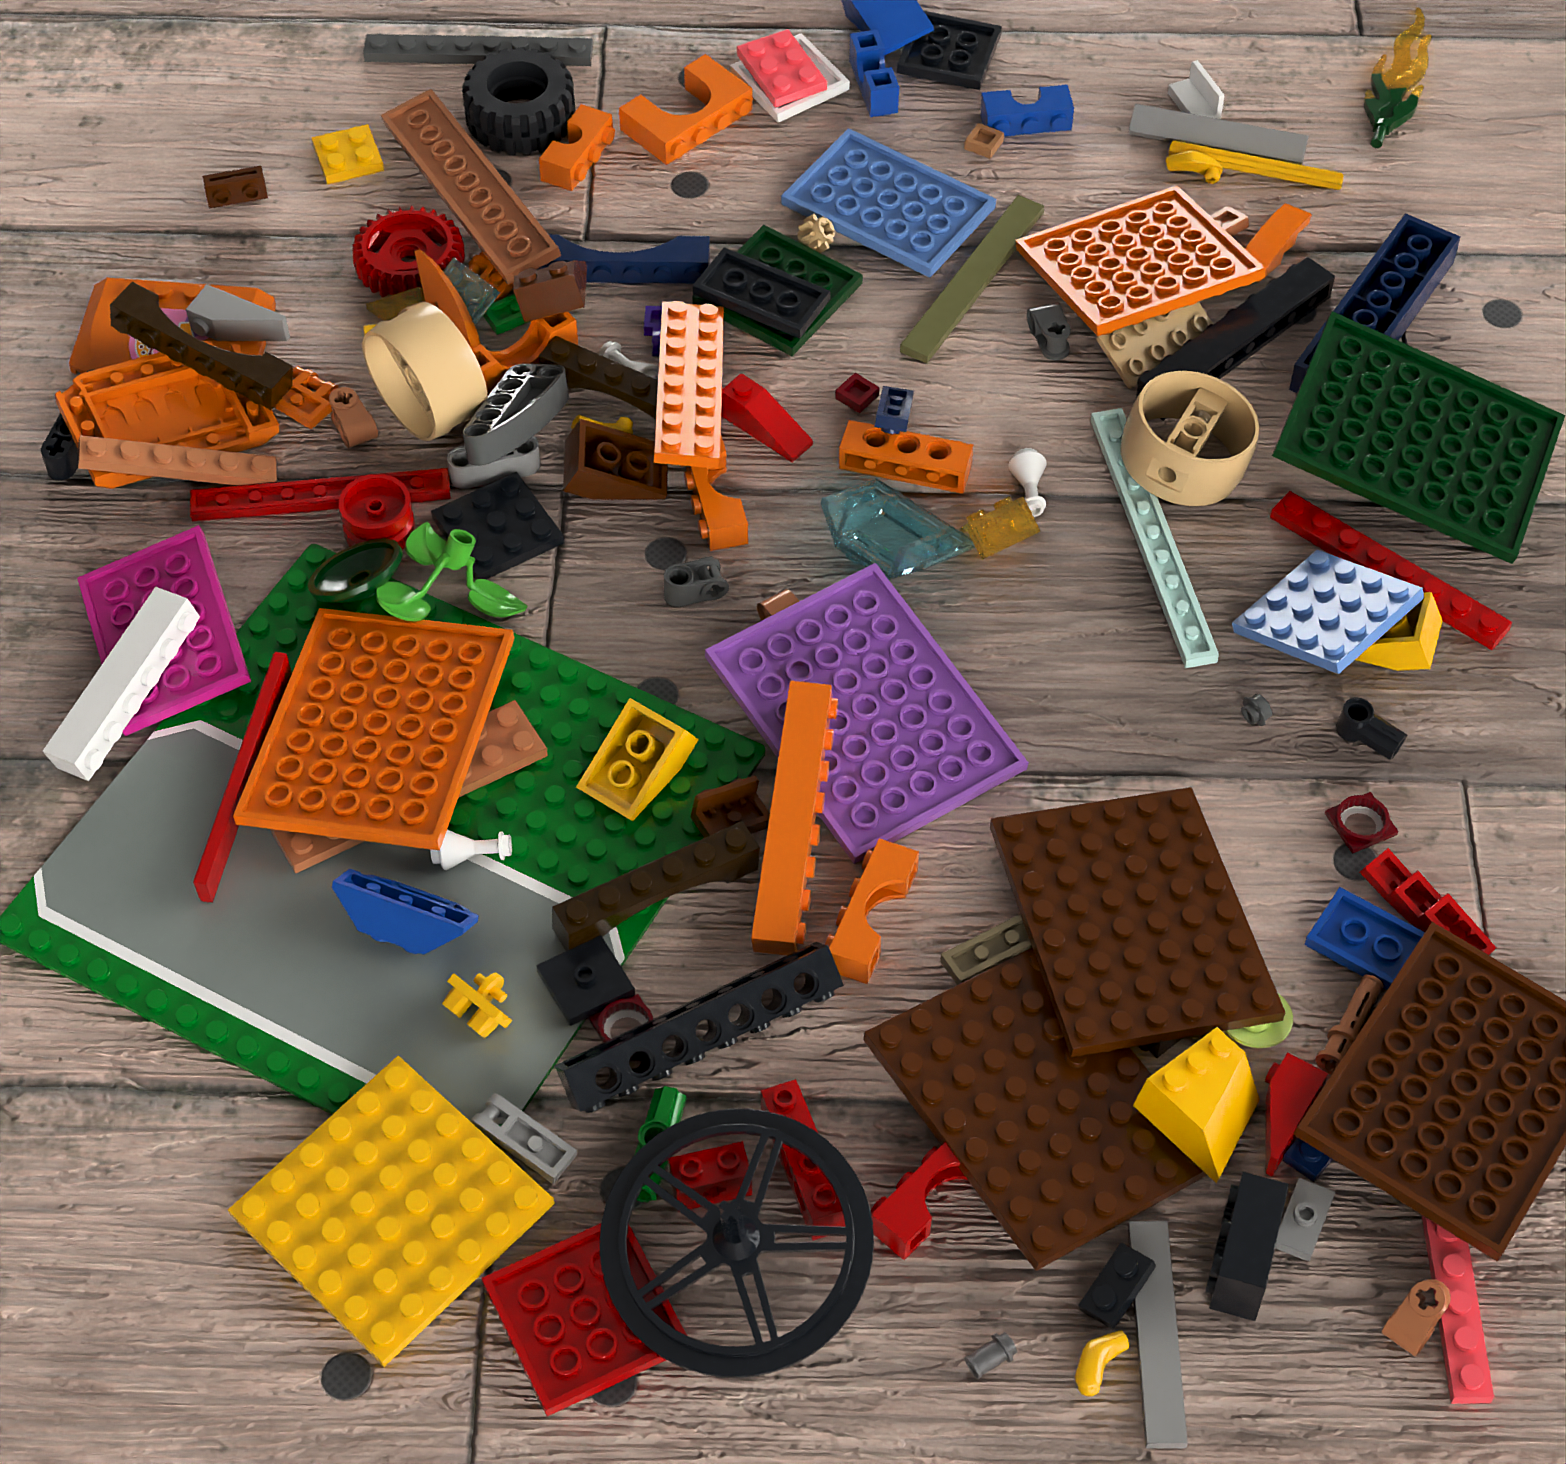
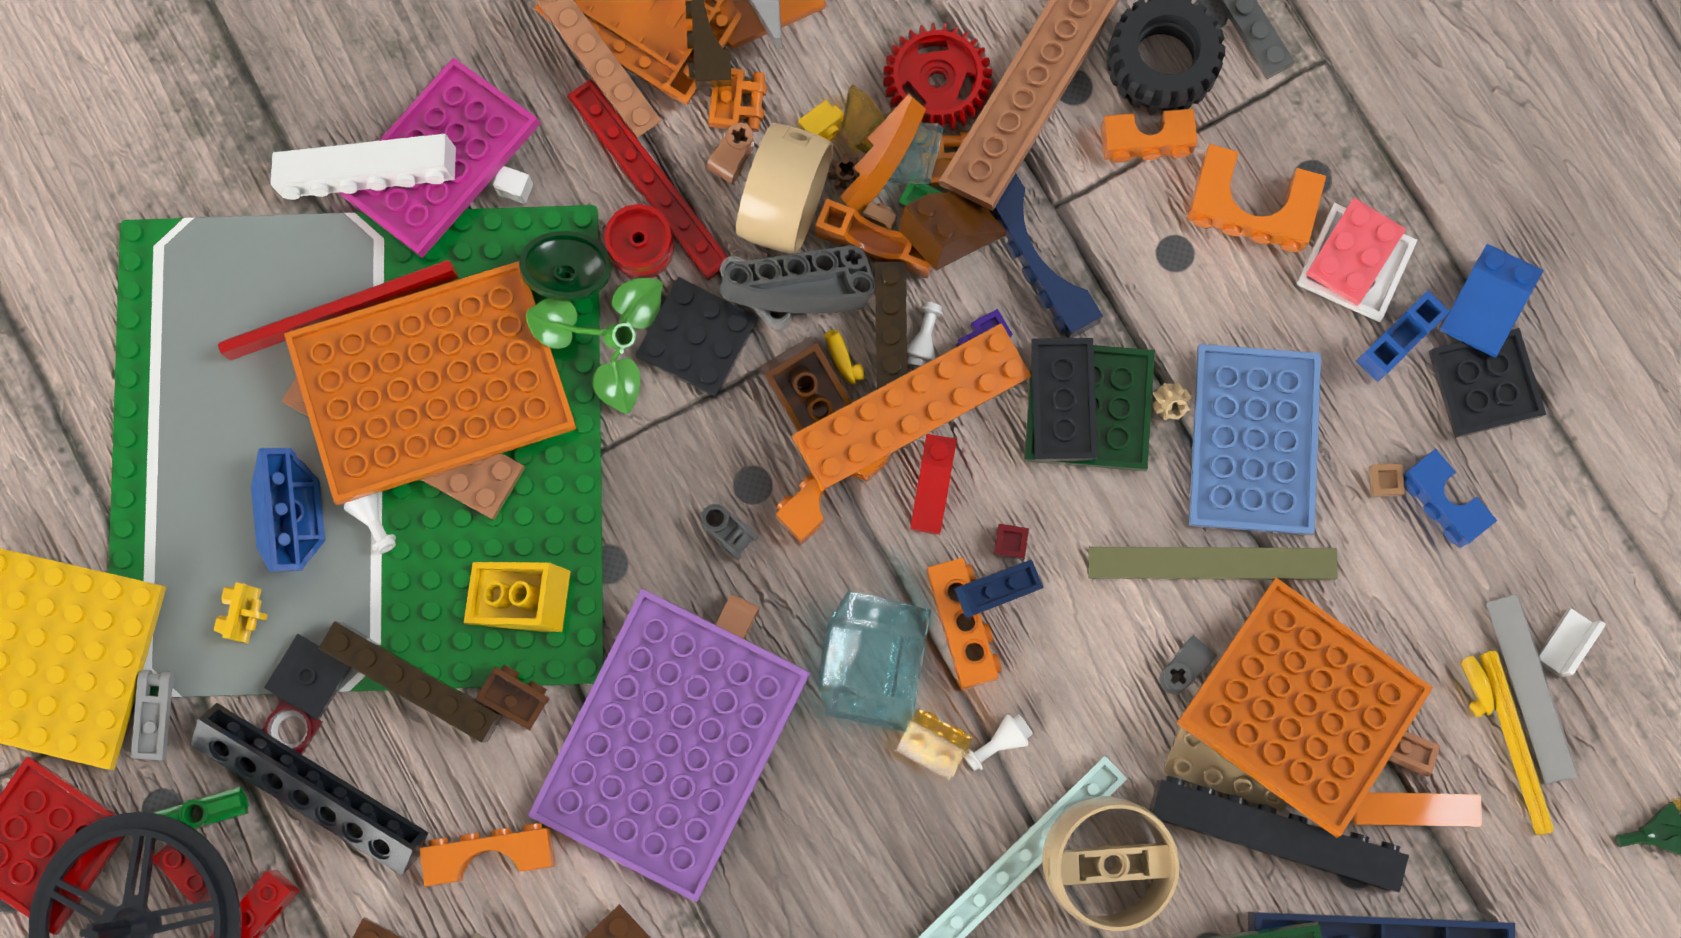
camera: 60 degrees right, 25 degrees up
(240, 589) = (513, 185): none -> white slope
(499, 340) = (881, 215): none -> medium nougat plate
(793, 818) = (525, 751): orange brick -> none

